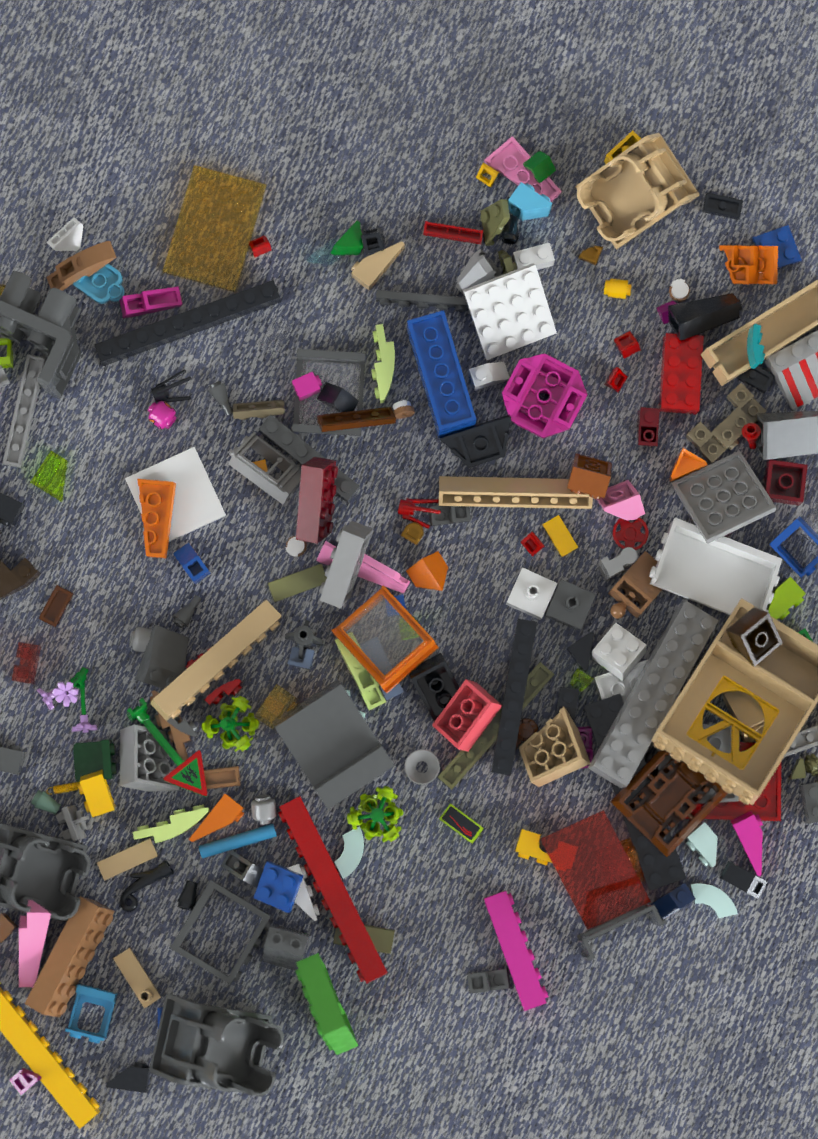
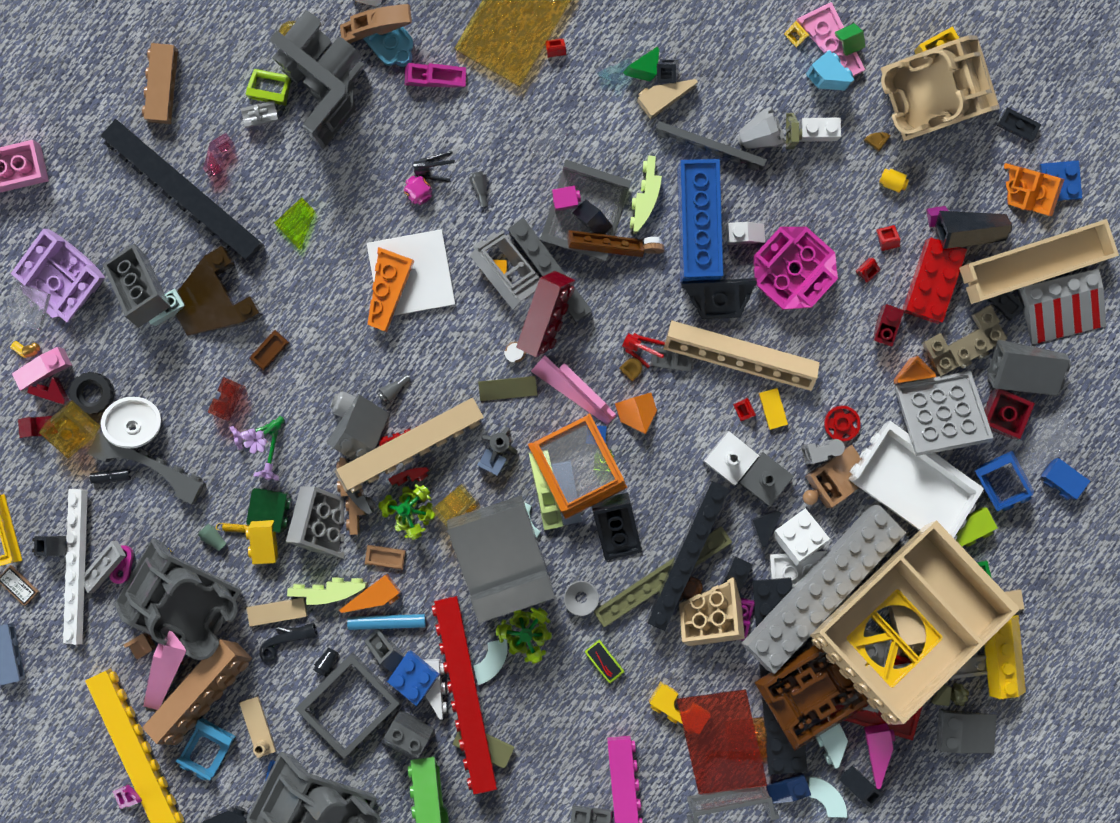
camera: 15 degrees right, 5 degrees up
(23, 412) = (284, 153): light grey tile -> none
(75, 823) = (235, 564): light grey hips -> none
(187, 323) = (465, 106): black brick -> none
(188, 773) = (355, 546): green piece -> none
(191, 563) = (409, 343): blue slope -> none
(258, 409) = (512, 208): dark tan hinge -> none
(263, 809) = (419, 598): light grey head -> none
(345, 564) = (558, 383): light grey brick -> none
(453, 233) = (747, 83): red piece -> none
(467, 715) = (637, 561): coral brick -> none
(494, 219) = (791, 81): olive wing -> none
(509, 311) = (783, 176): white plate -> none
(510, 231) = (803, 97): black cone -> none
(581, 677) = (760, 555): clear neon green tile -> none
(589, 476) = (818, 359): dark orange slope -> none
(622, 501) = (842, 390): bright pink slope -> none
(679, 290) = (953, 197): white piece -> none
(751, 433) = (987, 358): red cone -> none
(754, 349) = (1015, 278): teal slope -> none
(754, 635) = (940, 562): dark brown slope -> none

